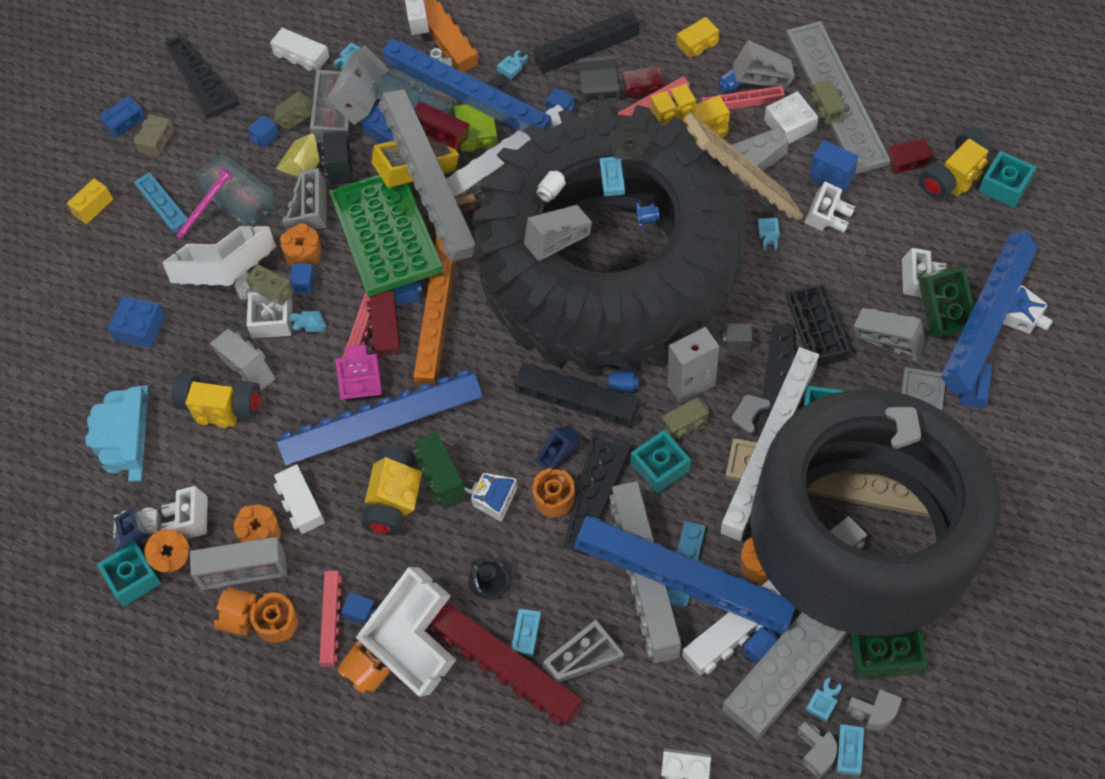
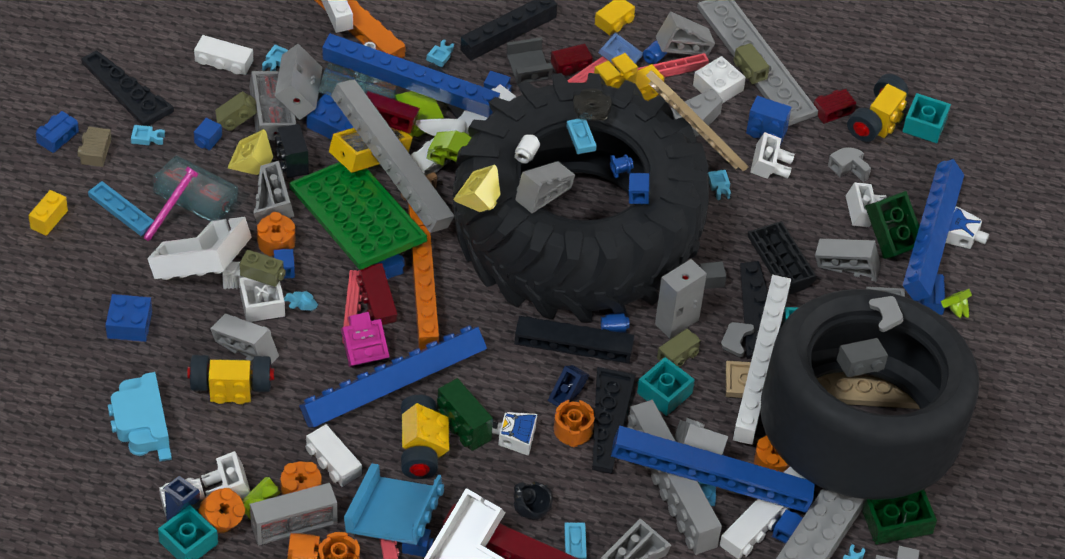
camera: 20 degrees left, 10 degrees down
(203, 127) = (144, 135): none -> medium azure plate
(214, 536) = (264, 490): none -> lime tile
(340, 568) = (392, 507): none -> dark azure panel
(483, 166) = (446, 145): none -> lime brick
(487, 230) = (480, 190): none -> light yellow slope
(488, 147) = (433, 126): none -> white piece
(658, 244) = (639, 188): none -> blue brick
(679, 532) = (695, 435): none -> light grey wedge
(696, 77) = (616, 46): none -> medium blue tile
(862, 482) = (862, 357): none -> dark grey brick
(913, 219) = (849, 160): none -> light grey brick
(1002, 398) = (958, 303): none -> lime tile

